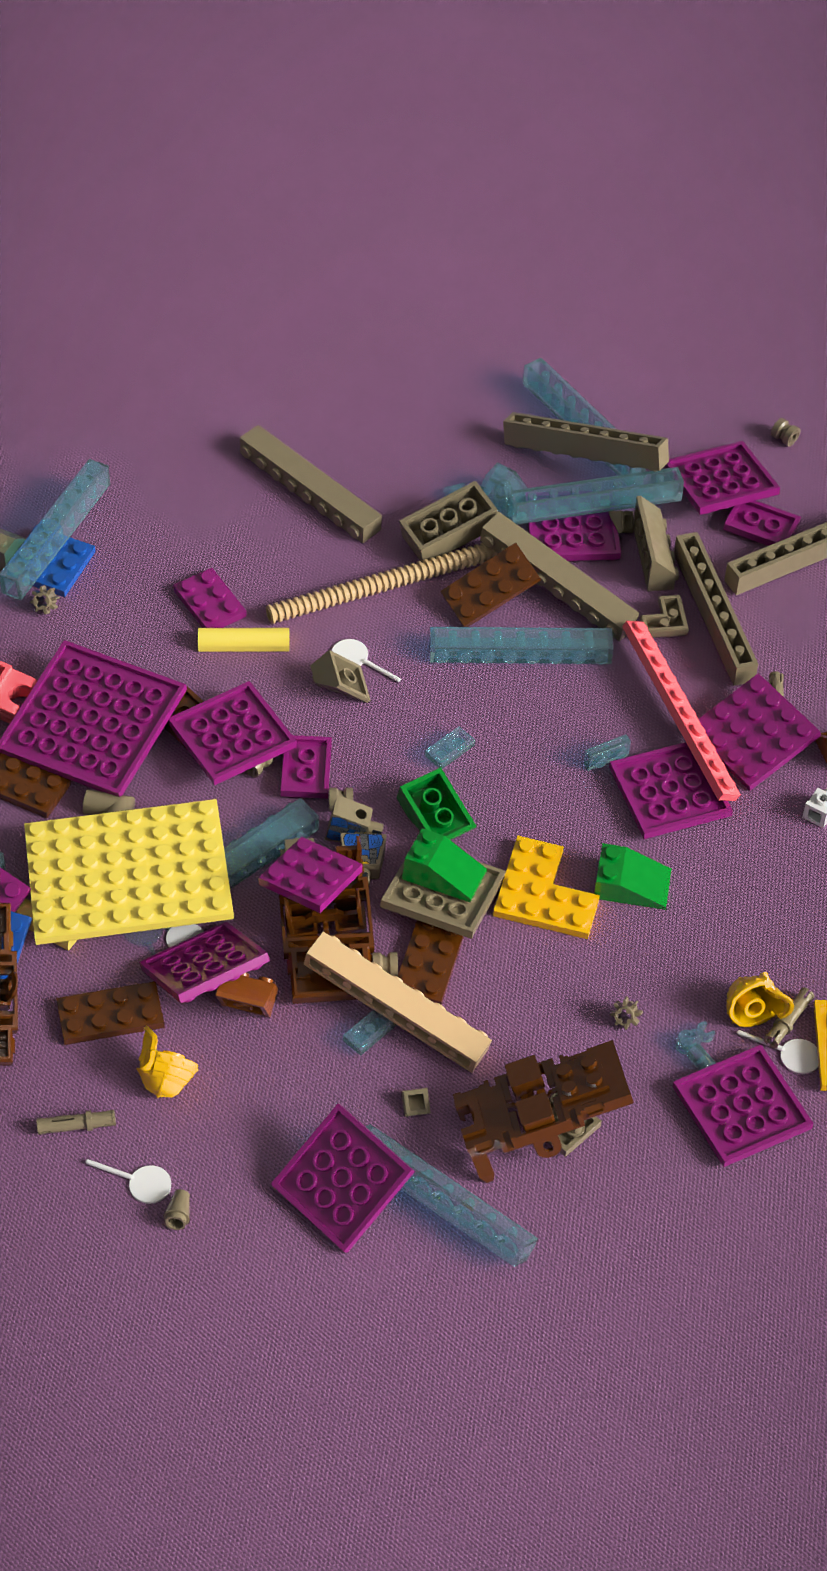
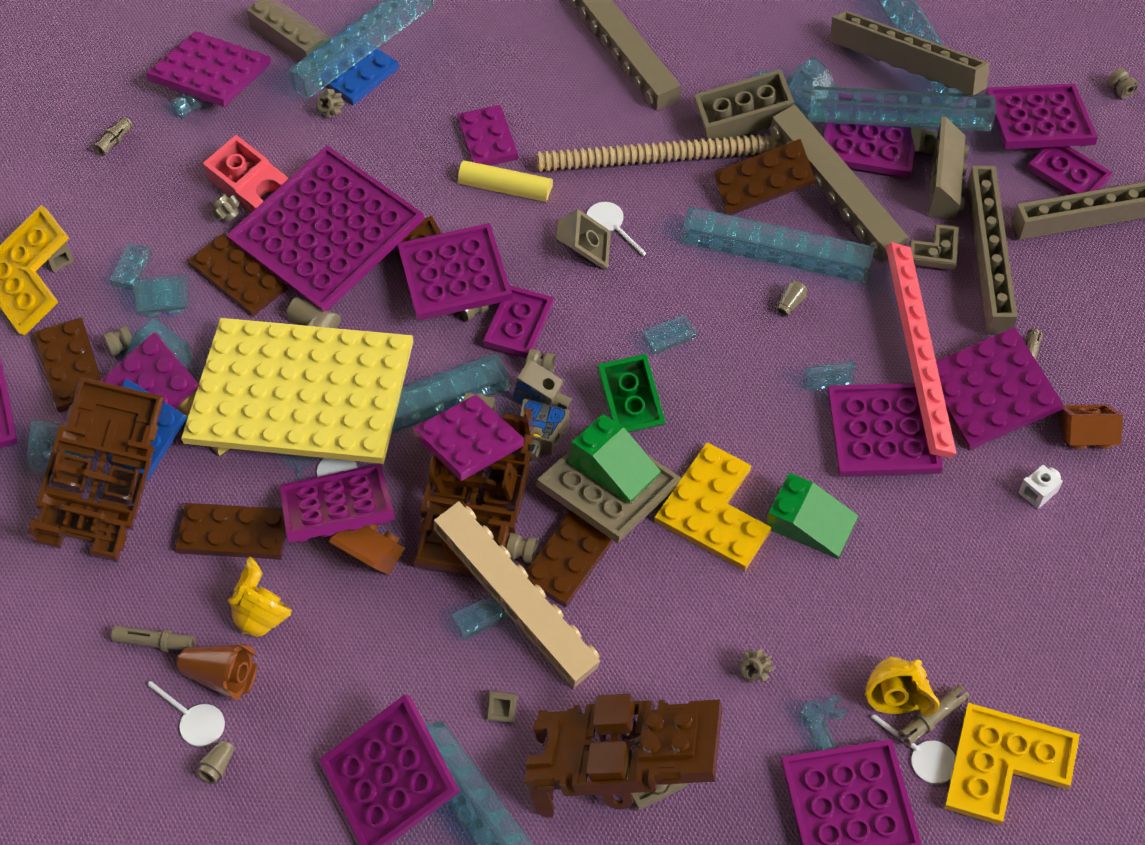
camera: 20 degrees right, 5 degrees up
(149, 1129) = (220, 668): none -> dark orange cone
(550, 690) = (792, 296): none -> dark tan cone

